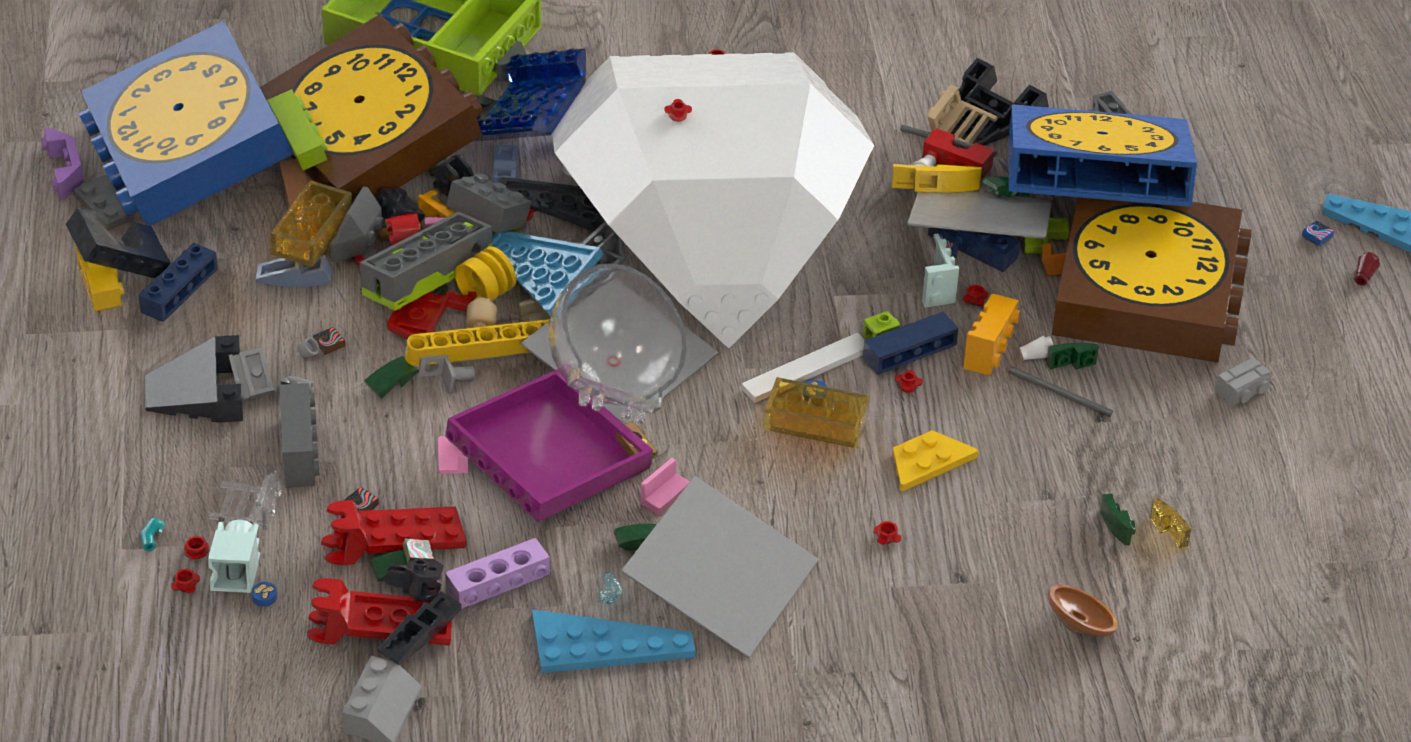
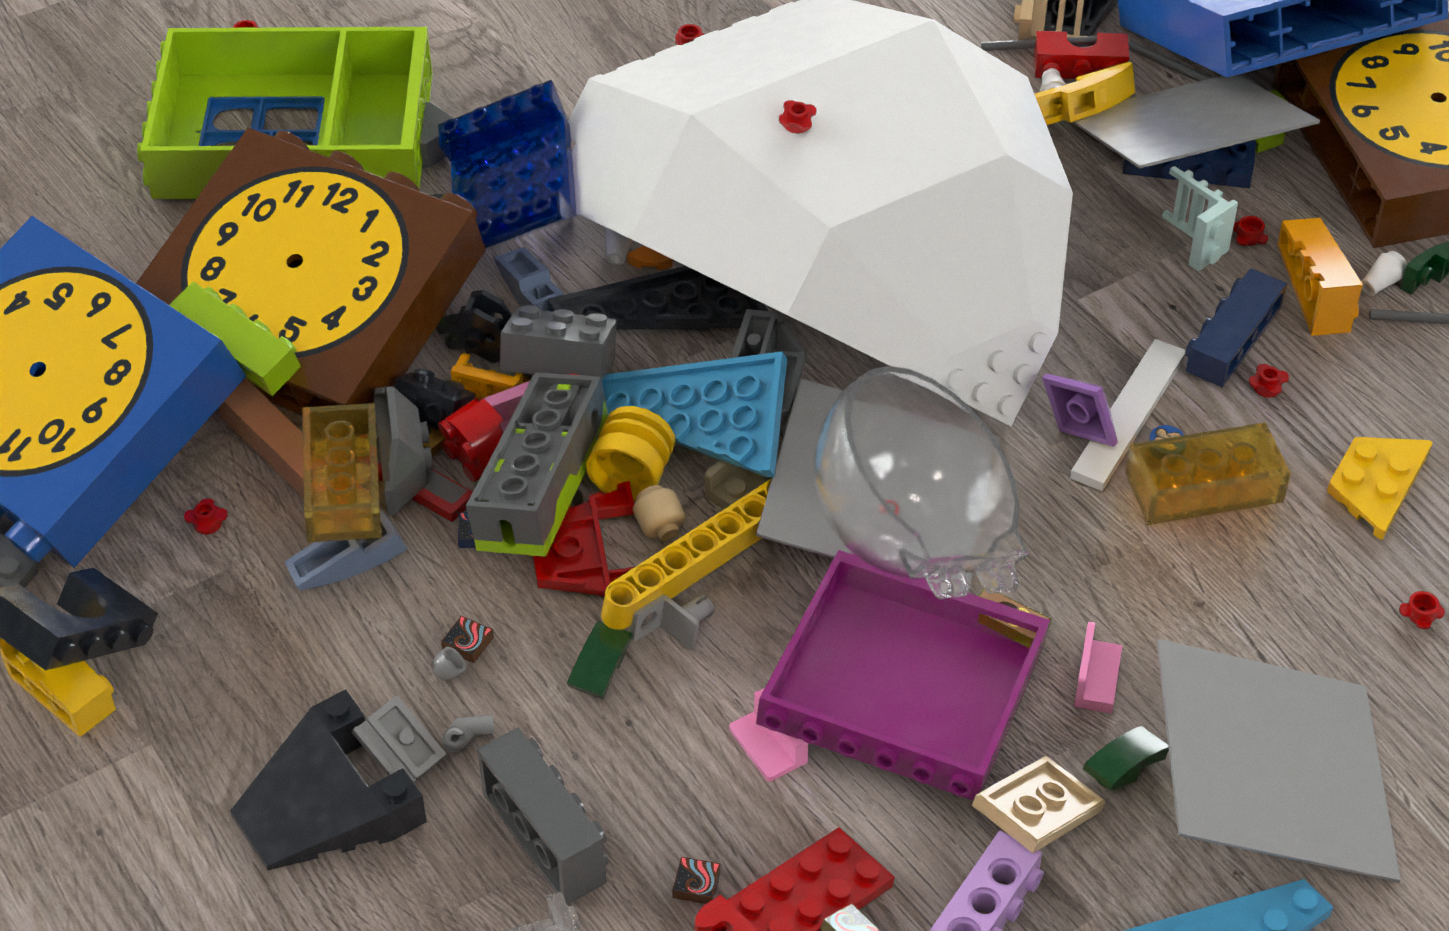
camera: 25 degrees left, 5 degrees up
(178, 282) = (184, 639): dark blue brick -> none
(233, 226) = (206, 517): none -> red plate
(571, 536) = (1038, 804): none -> tan tile
(612, 588) = (1148, 860): clear light blue arm -> none
(771, 348) = (1080, 409): none -> medium lavender slope
(879, 325) = (1182, 321): lime brick -> none
(952, 242) = (1161, 180): dark blue tile -> none
(1000, 185) = (1174, 75): dark green slope -> none
(1052, 262) = (1312, 151): orange panel -> none

